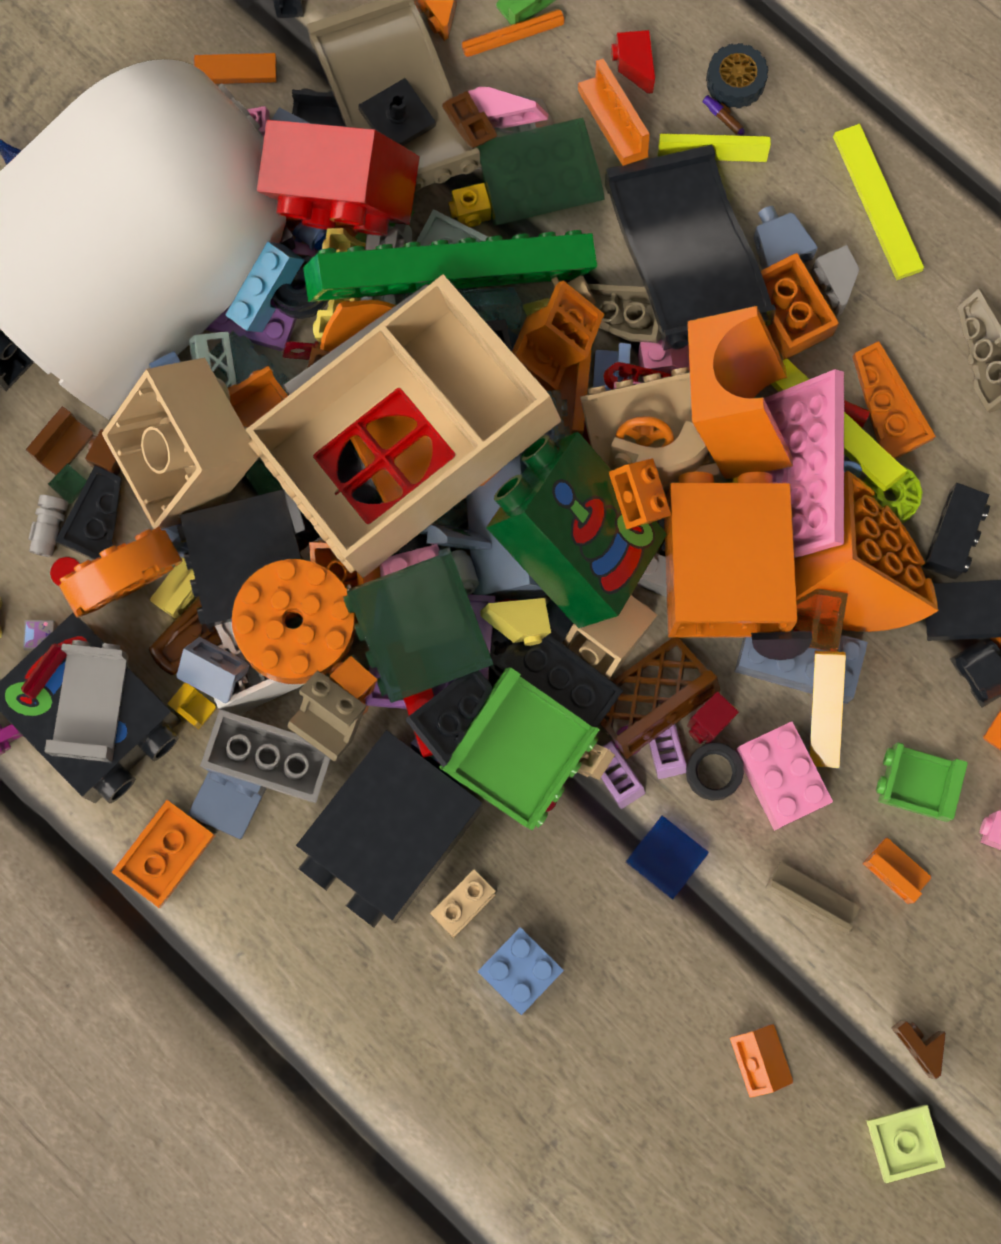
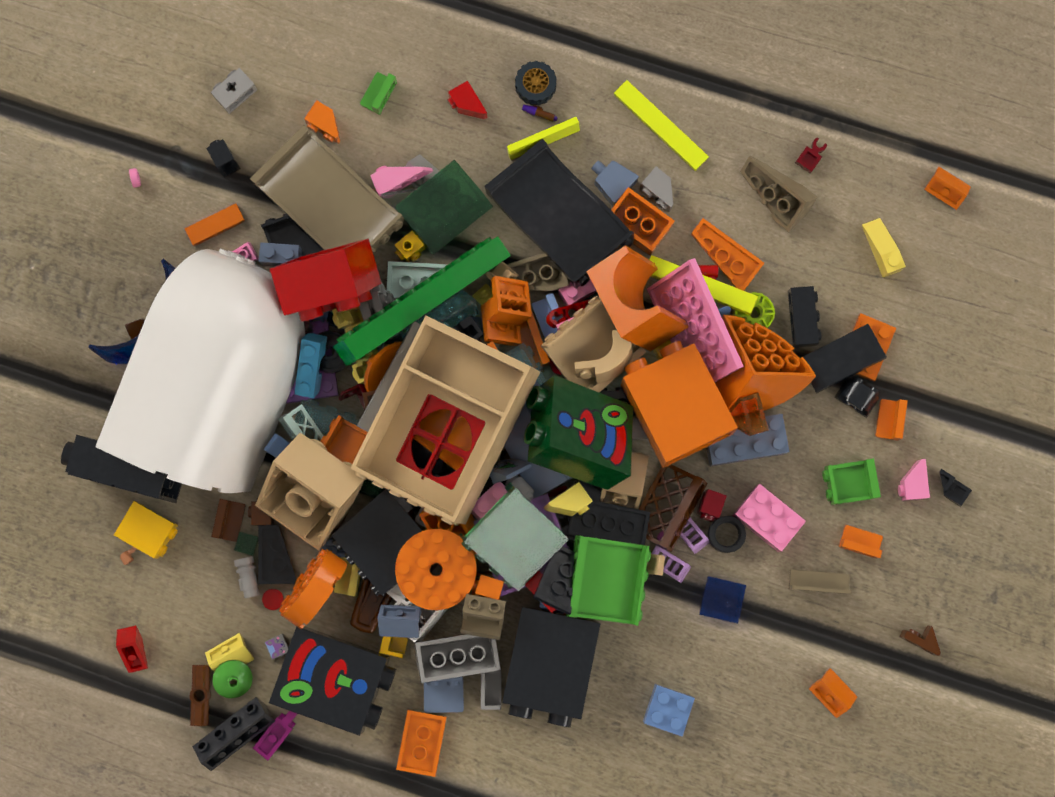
camera: 25 degrees left, 5 degrees up
(43, 671) = (298, 671): dark red axle -> none
(89, 702) = (335, 677): light grey panel -> none
(291, 825) = (491, 690): none -> light grey panel
(397, 113) = (337, 213): black tile -> none
(463, 903) = (617, 688): tan panel -> none
(468, 121) = (384, 196): reddish brown slope -> none
(513, 33) = (380, 119): orange axle -> none
(615, 115) = (472, 147): orange fence -> none
(639, 493) = (607, 393): orange brick -> none
(644, 430) = (591, 348): orange piece -> none
(781, 644) = (733, 441): black tile -> none
(827, 708) = (777, 466): tile -> none
(905, 1143) = (937, 700): yellowish green tile -> none

